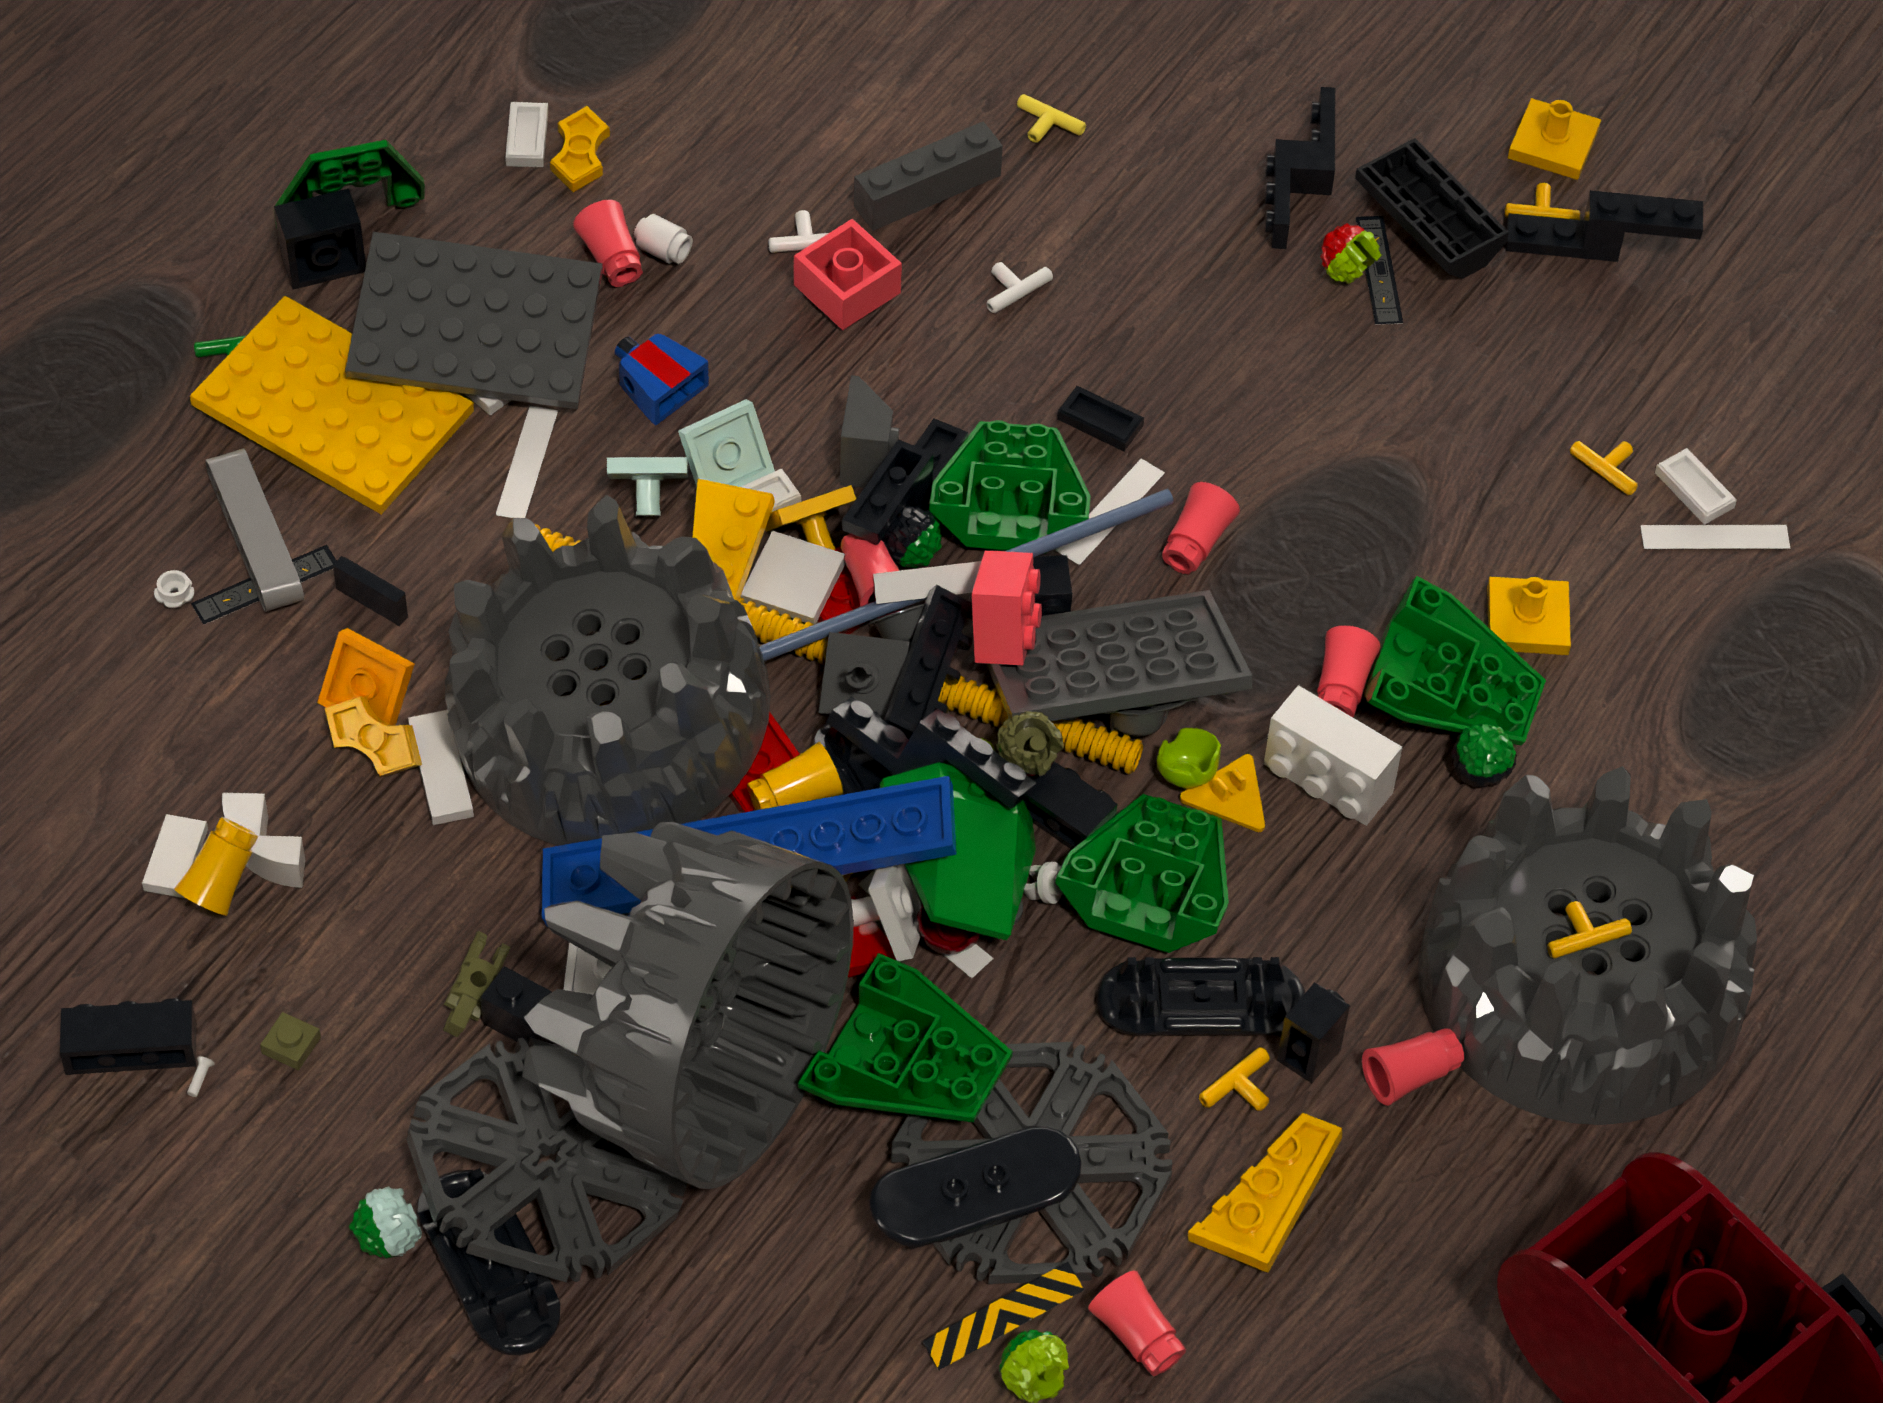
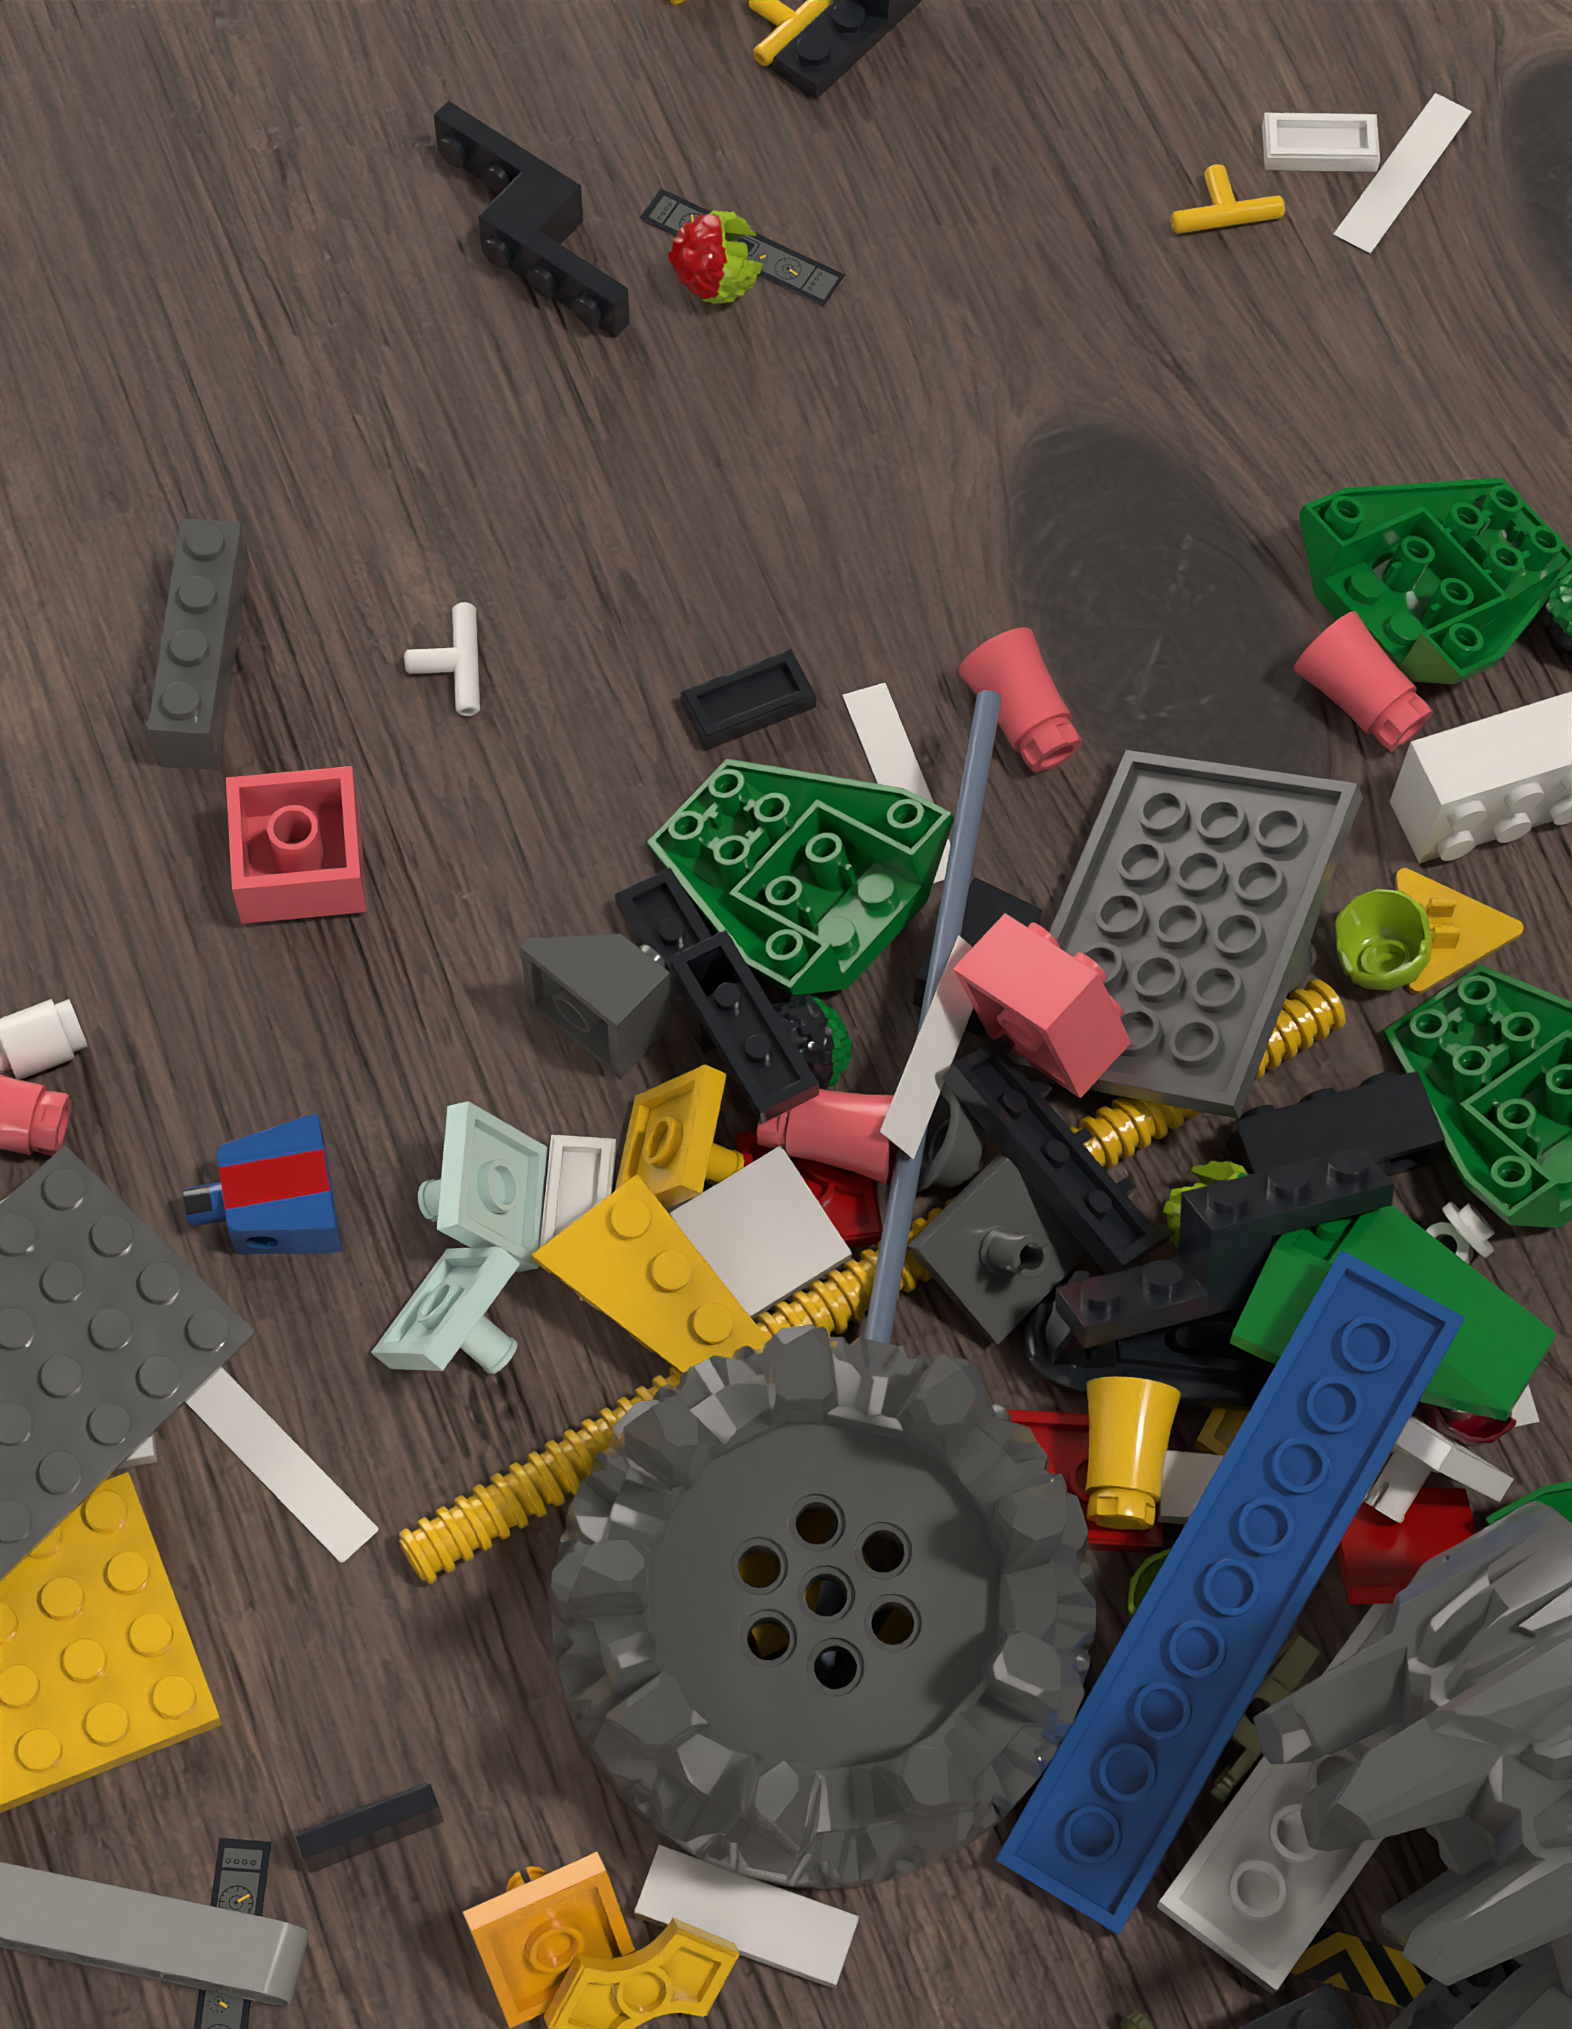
camera: 55 degrees left, 10 degrees up
(801, 241) = (173, 860): white piece -> none
(1030, 742) = (1285, 1116): olive piece -> none
(1048, 117) = (205, 443): light yellow piece -> none
(1434, 208) = (711, 123): black piece -> none
(1530, 614) = (1393, 429): yellow tile -> none

